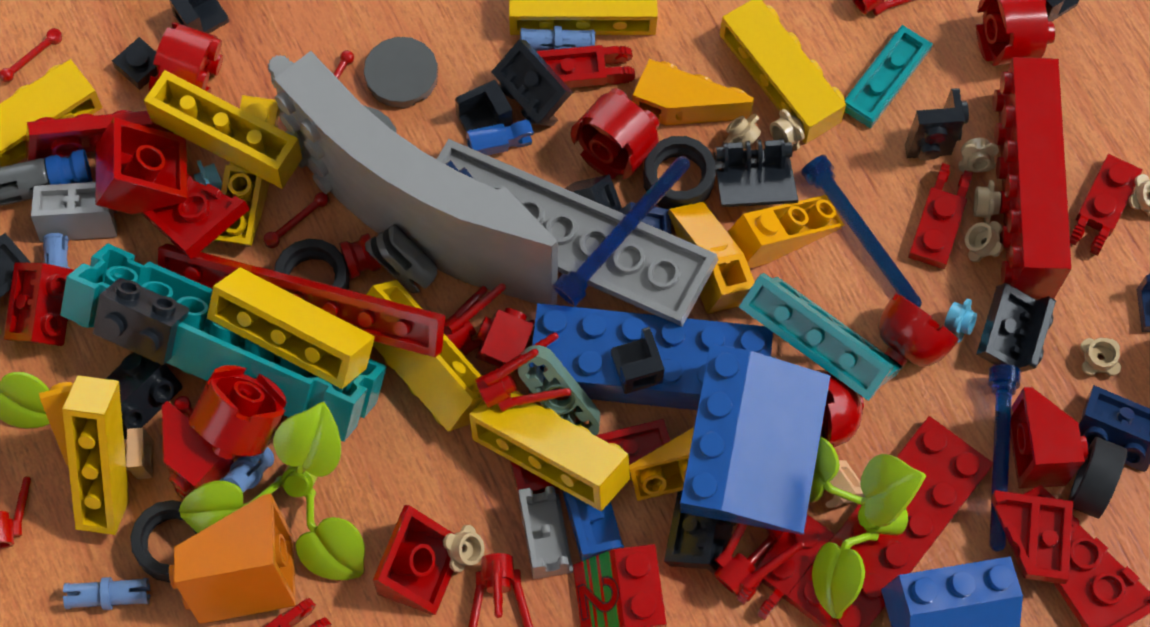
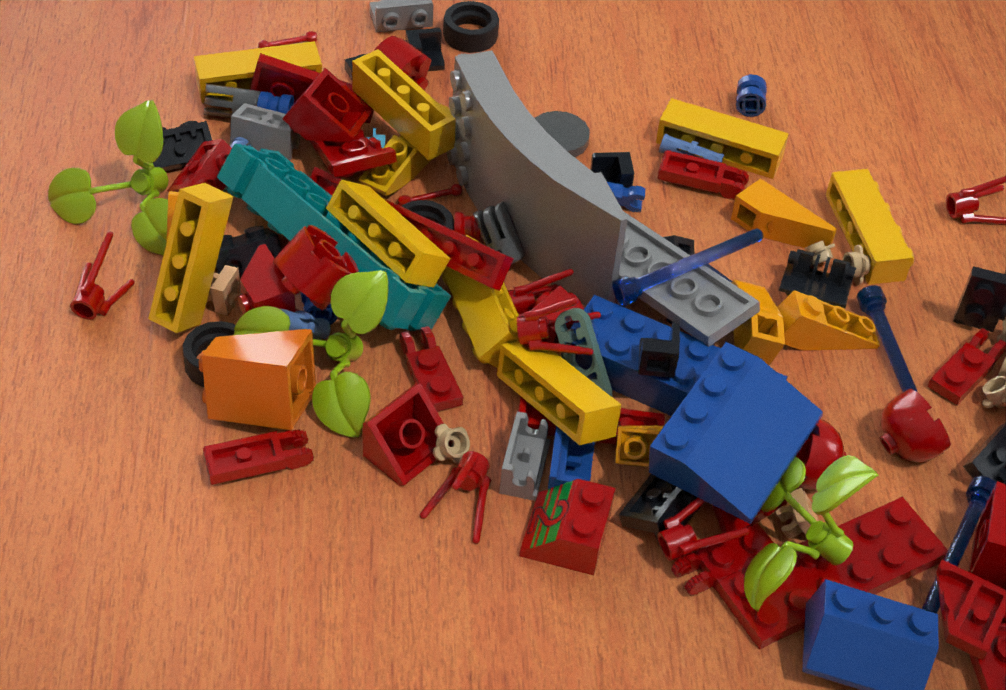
camera: 20 degrees right, 20 degrees down
(106, 593) = (147, 372): medium blue pin -> none
(139, 320) = (272, 189): black bracket -> none
(403, 463) = (431, 370): none -> red hinge
(531, 83) = (657, 165): black bracket -> none
(615, 134) = (710, 214): red brick -> none
(693, 150) = (766, 250): black tyre -> none
(819, 335) = (826, 390): teal fence -> none
(886, 76) = (956, 262): teal tile -> none
(961, 319) = (960, 438): medium azure plate -> none

